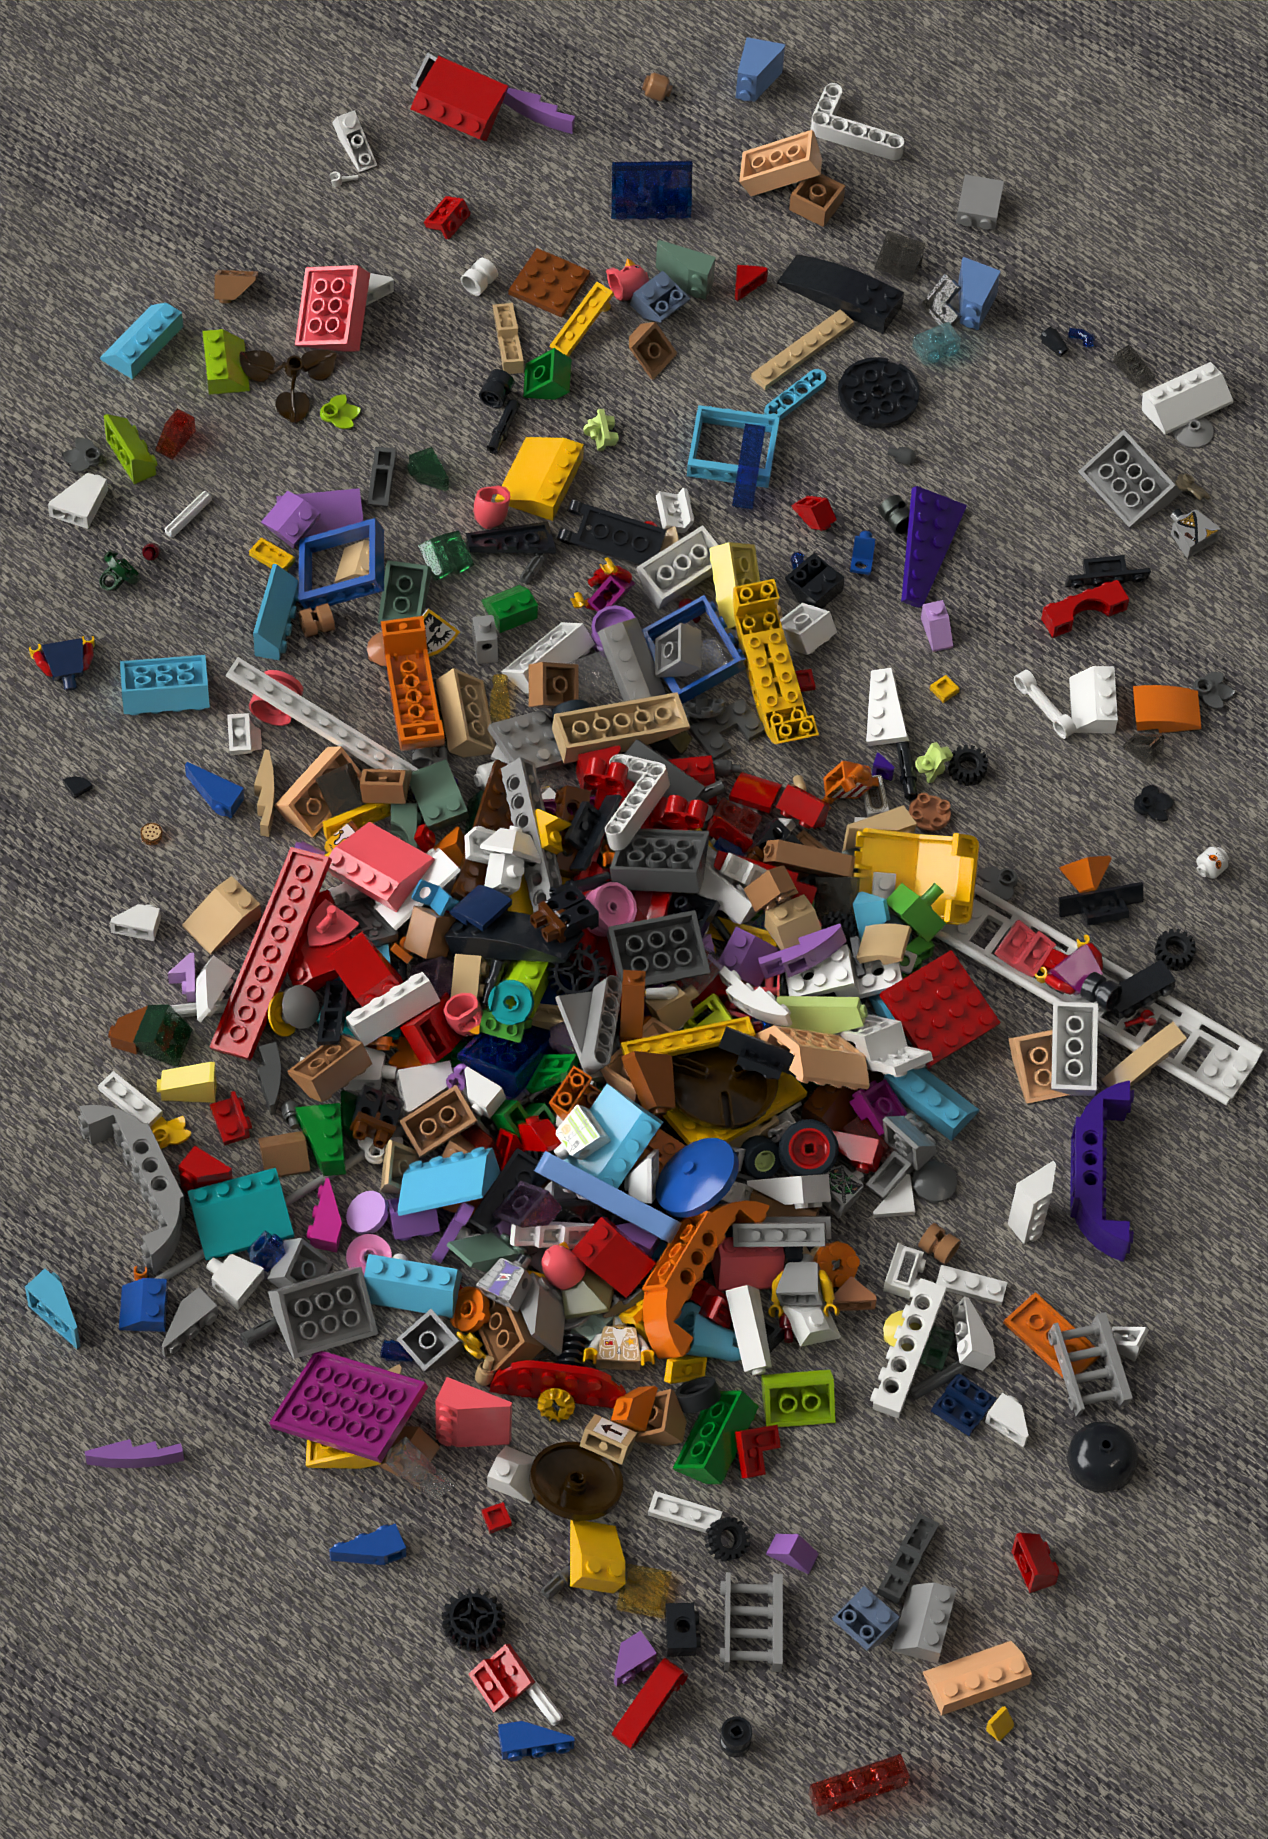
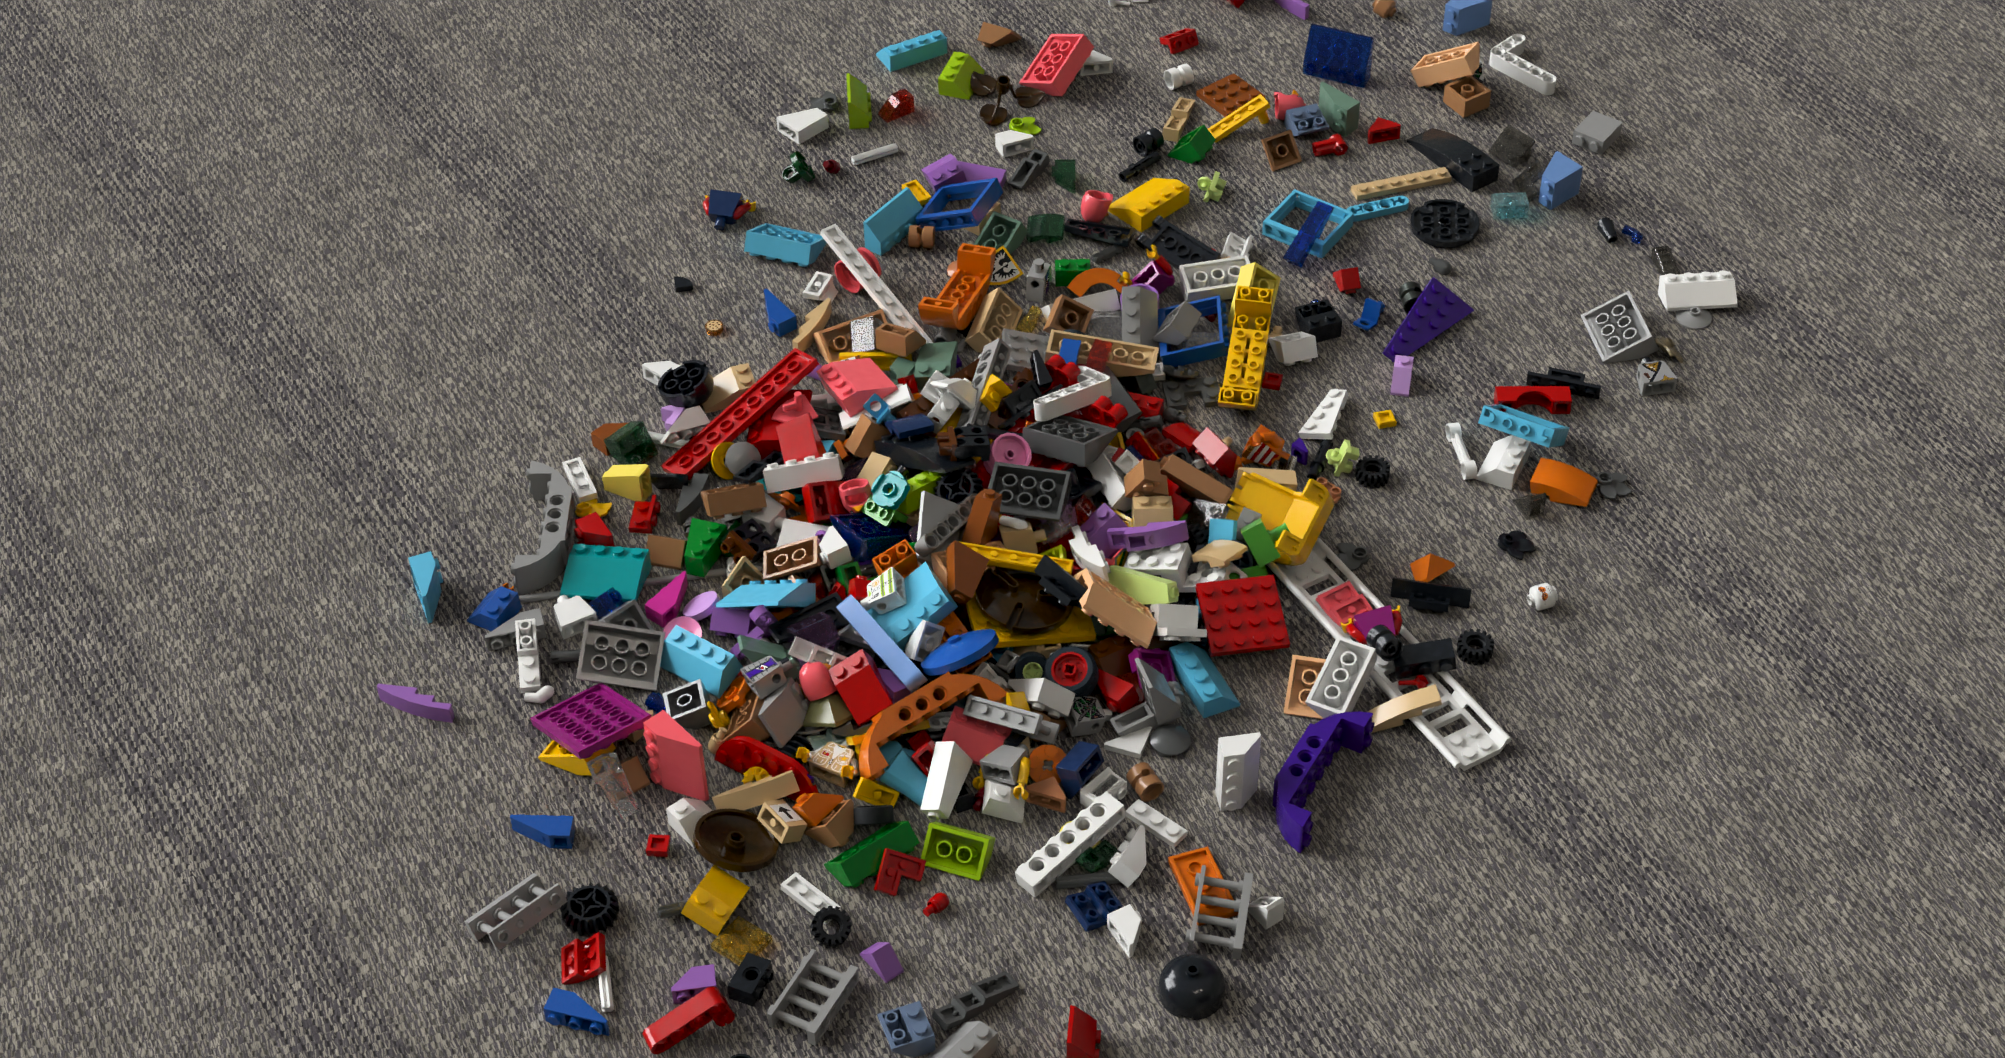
camera: 30 degrees right, 15 degrees down
(181, 932) = (686, 385): none -> black cylinder
(222, 1351) = (528, 655): none -> white slope
(237, 1064) = (669, 480): none -> black slope
(262, 1390) = (540, 696): none -> white arm
(341, 442) = (1013, 142): none -> white slope
(388, 1650) = (515, 911): none -> light grey fence
(547, 613) = (1090, 277): none -> orange arch
(561, 1424) = (754, 794): none -> tan slope
(587, 786) = (1040, 372): none -> black slope
(593, 741) = (1070, 350): none -> blue slope
(627, 734) = (1099, 355): none -> clear red slope
(704, 319) = (1334, 144): none -> red piece
(720, 943) = (1084, 509): none -> clear red slope
(781, 1211) = (1017, 700): none -> yellow slope
(811, 1467) = (936, 904): none -> red cylinder
(874, 1257) = (1079, 766): none -> dark blue slope
(1101, 643) = (1523, 425): none -> medium azure window

